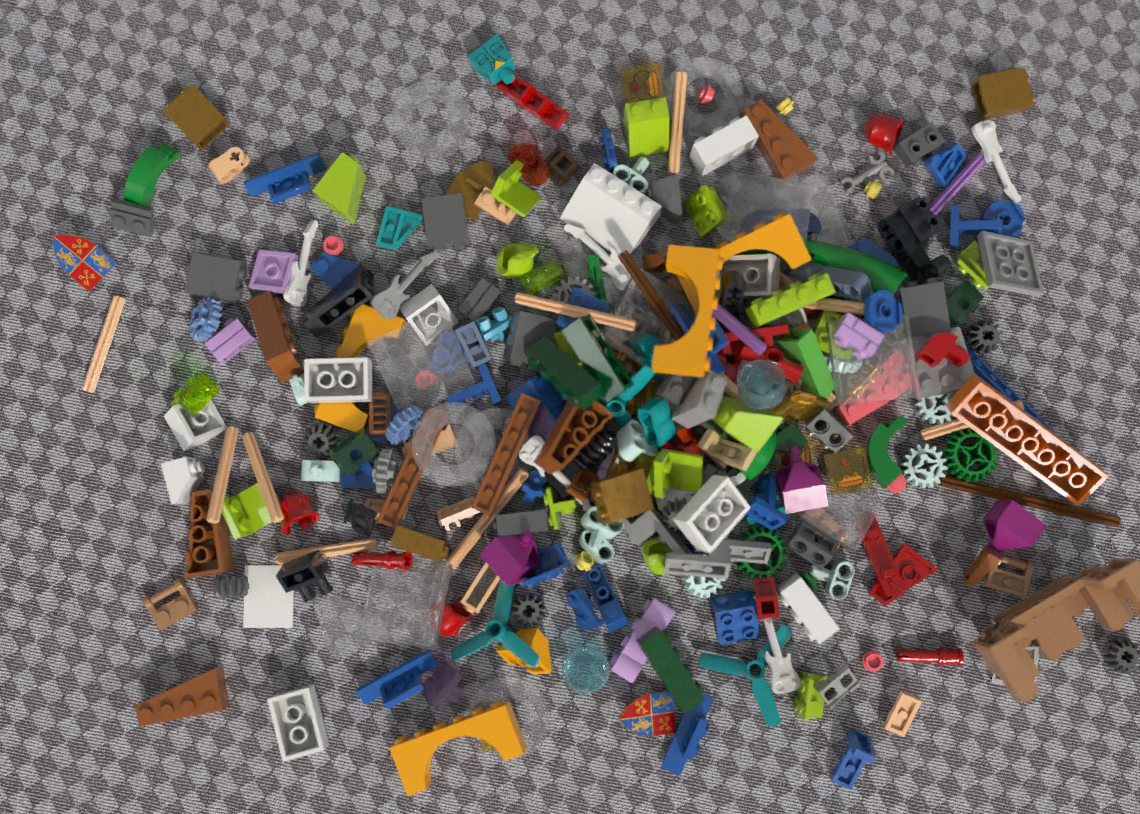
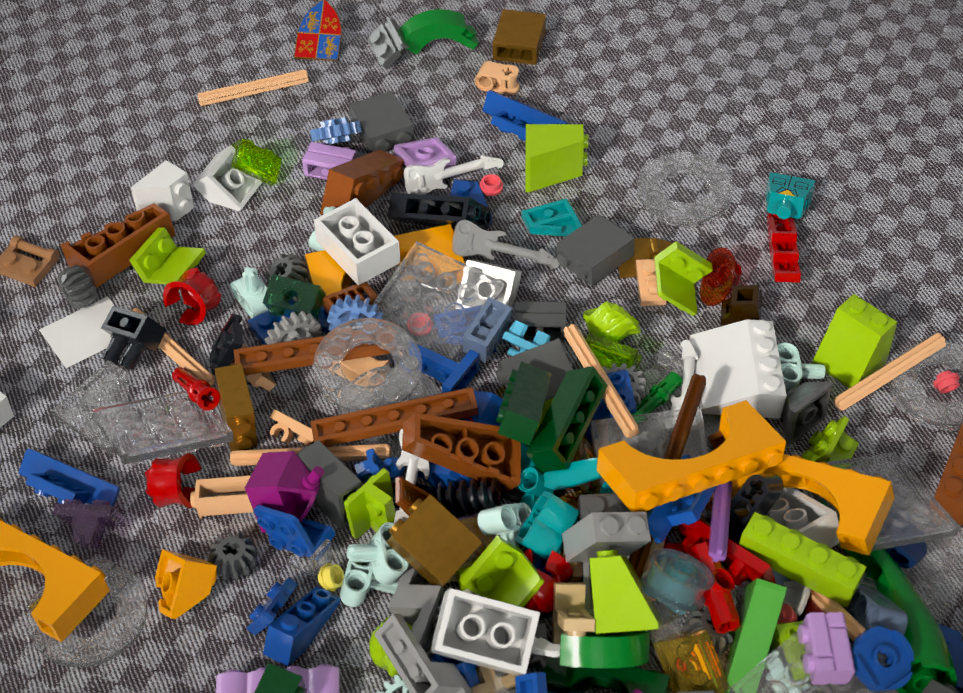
camera: 60 degrees right, 35 degrees down
(222, 475) = (189, 217): light nougat axle -> none
(262, 477) = (210, 248): light nougat axle -> none
(510, 640) = (189, 532): teal piece -> none
(586, 683) = (195, 635): clear light blue wheel -> none
(607, 143) = (801, 329): blue wing -> none
(642, 83) = (909, 328): clear yellow tile -> none
(723, 145) = (908, 421): white brick -> none

